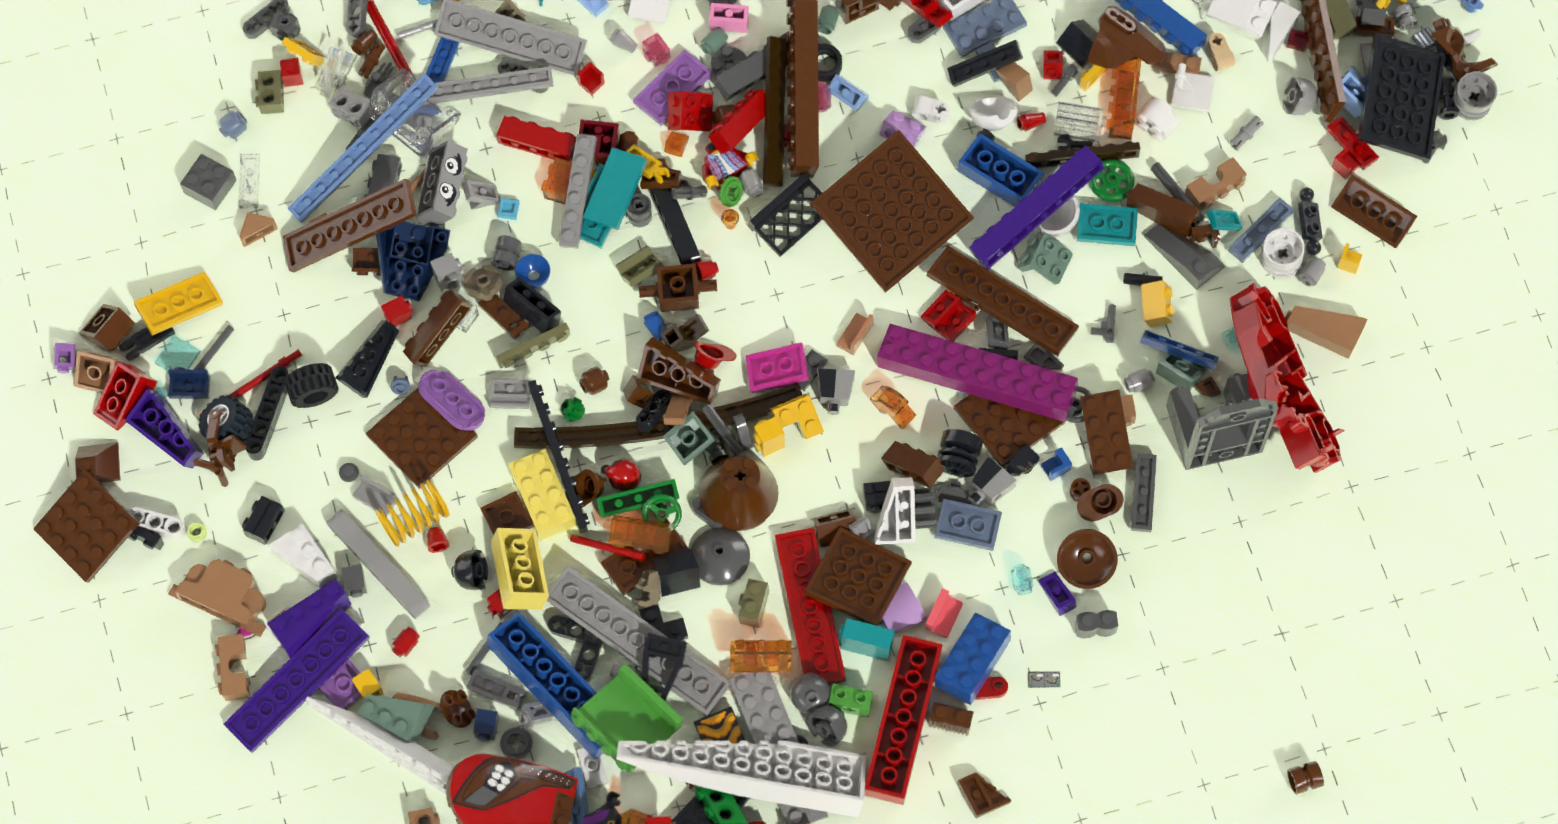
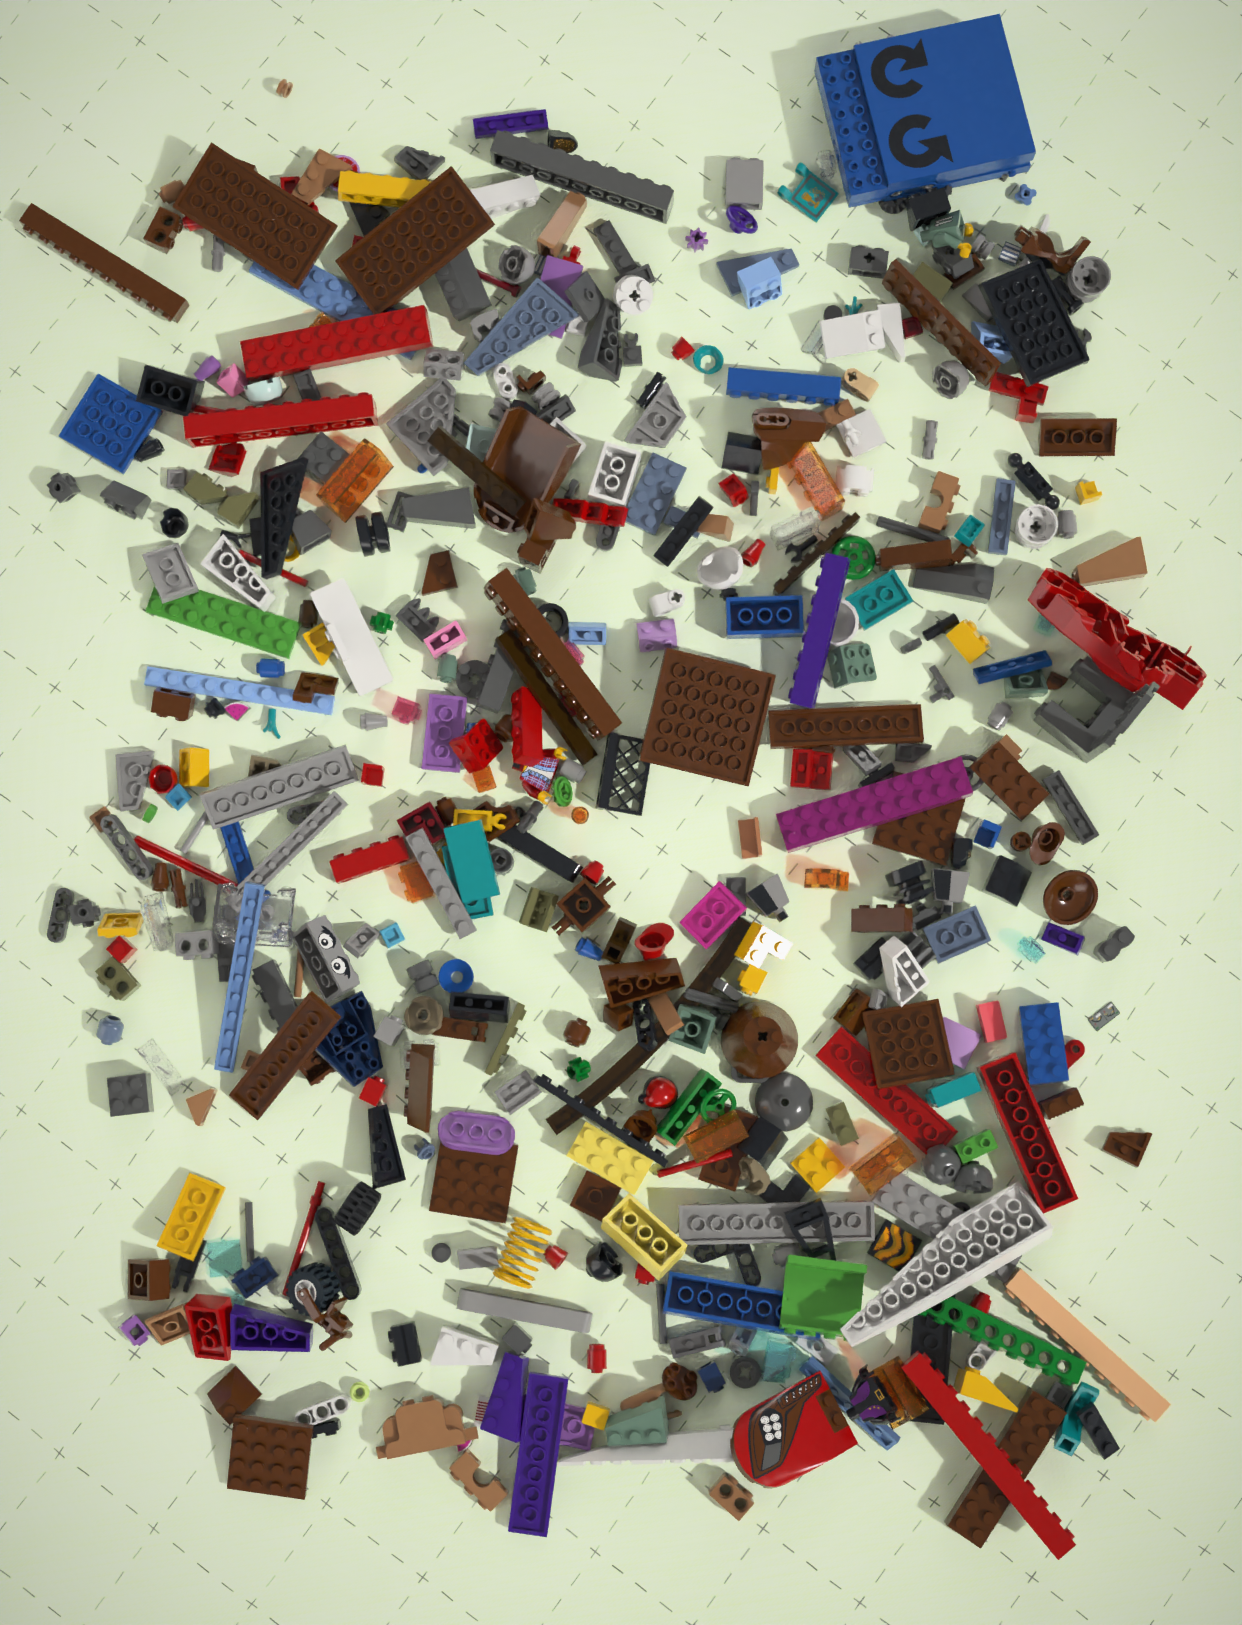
camera: 35 degrees left, 15 degrees up
(550, 746) = (777, 1360): none -> clear light blue slope
(707, 624) = (817, 1165): none -> yellow plate
(1044, 511) = (1007, 880): none -> black slope
(1107, 277) = (911, 646): none -> dark grey tile

